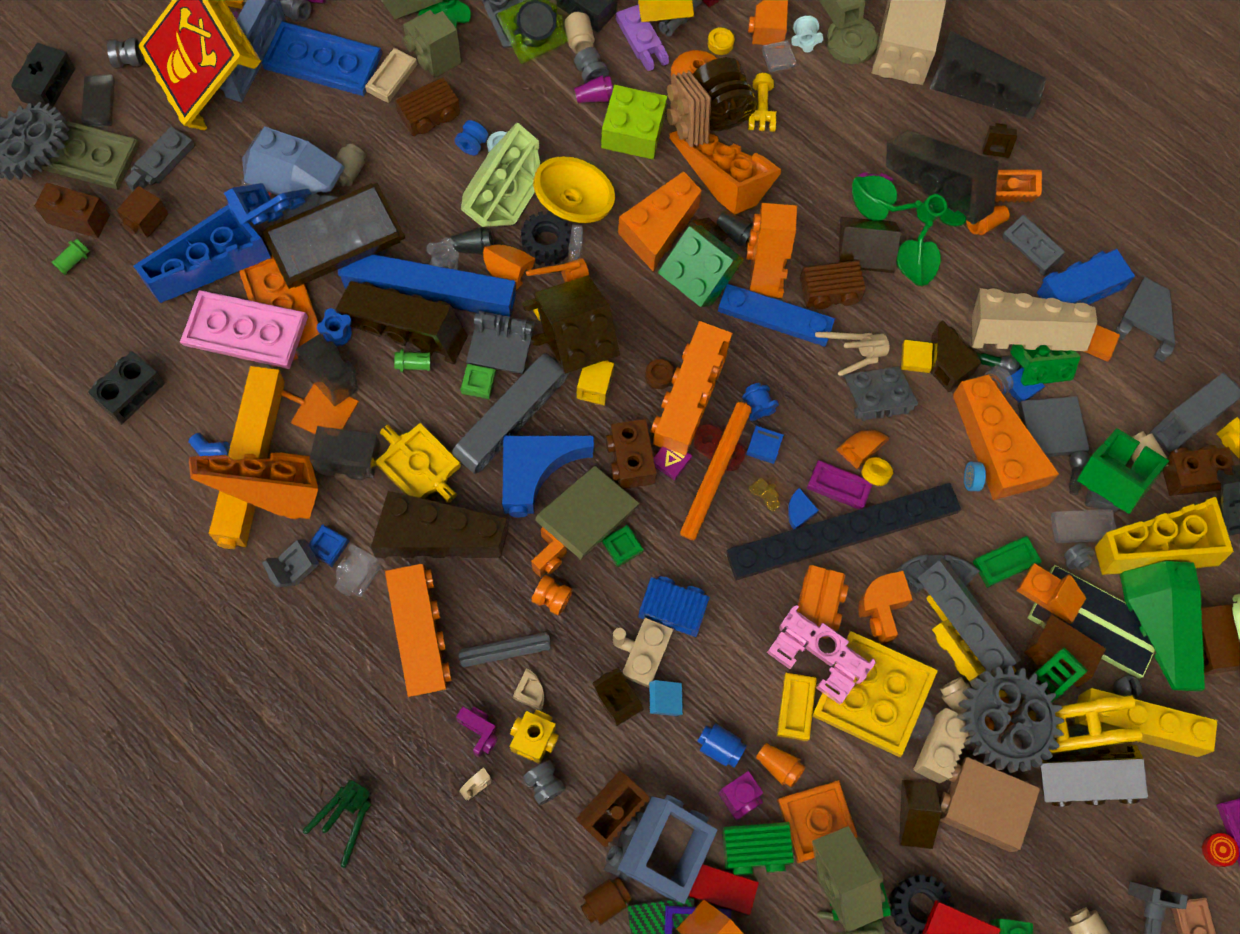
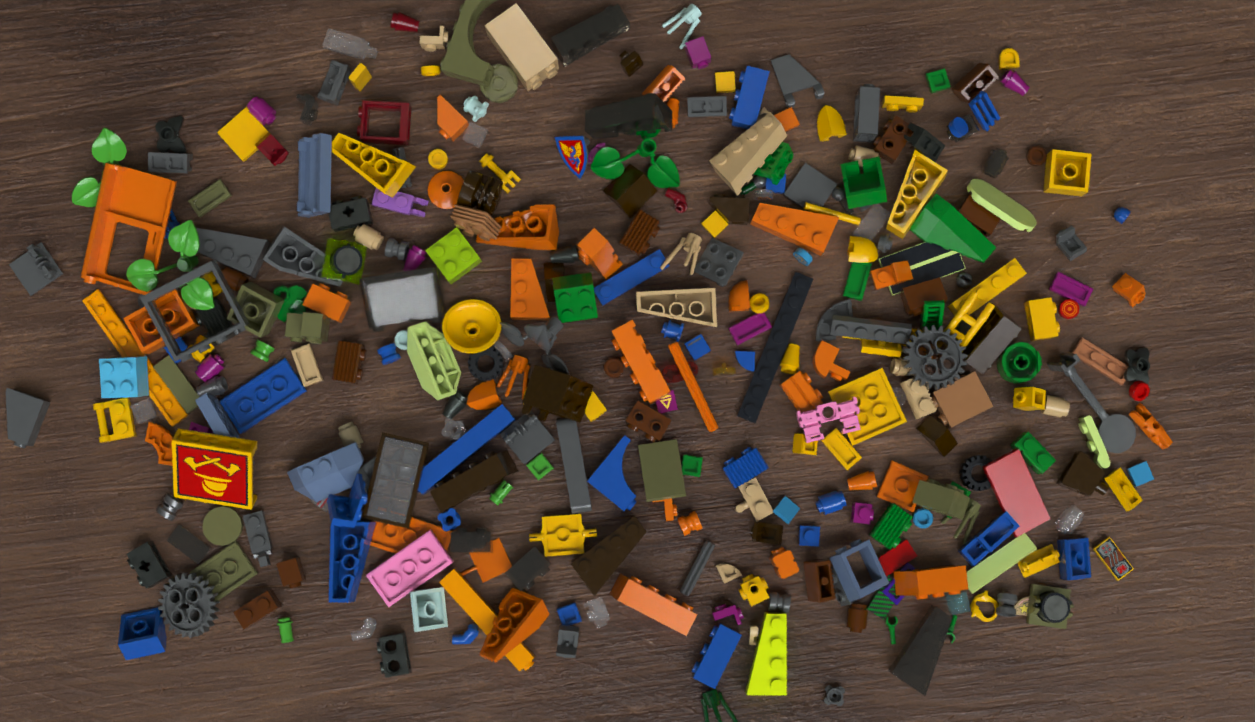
camera: 45 degrees left, 15 degrees up
(139, 339) = (366, 631): none -> clear arm
(144, 117) = (222, 526): none -> olive tile
(208, 381) = (428, 609): none -> light aqua slope
(370, 21) = (262, 350): none -> bright green wheel
(412, 757) = (716, 655): none -> blue brick
(458, 831) = (769, 664): none -> neon yellow wedge
(474, 40) = (327, 303): none -> orange brick
(547, 101) = (403, 298): none -> clear smoke windscreen
(597, 743) = (783, 562): none -> orange brick
(639, 266) = (541, 336): none -> dark grey plant
(657, 754) = (809, 535): none -> blue plate
(760, 661) = (802, 447): none -> yellow slope
(797, 384) = (685, 305): none -> tan wedge
(801, 882) = (922, 518): none -> dark azure tile
(847, 558) = (790, 361): none -> yellow cone
(853, 153) = (574, 152): none -> shield
(907, 296) = (679, 200): none -> dark red arm
(1046, 536) = (861, 250): none -> yellow brick
(1059, 482) = (822, 210): none -> yellow bar
(1072, 890) = (1029, 398): none -> yellow brick
(1076, 248) = (725, 82): none -> yellow tile
(1077, 196) = (698, 53): none -> magenta brick
(1104, 159) = (689, 15): none -> light aqua plant
(1117, 847) = (1024, 353): none -> green brick
(1144, 389) = (830, 124): none -> yellow brick
(1177, 823) = (1041, 319): none -> yellow brick

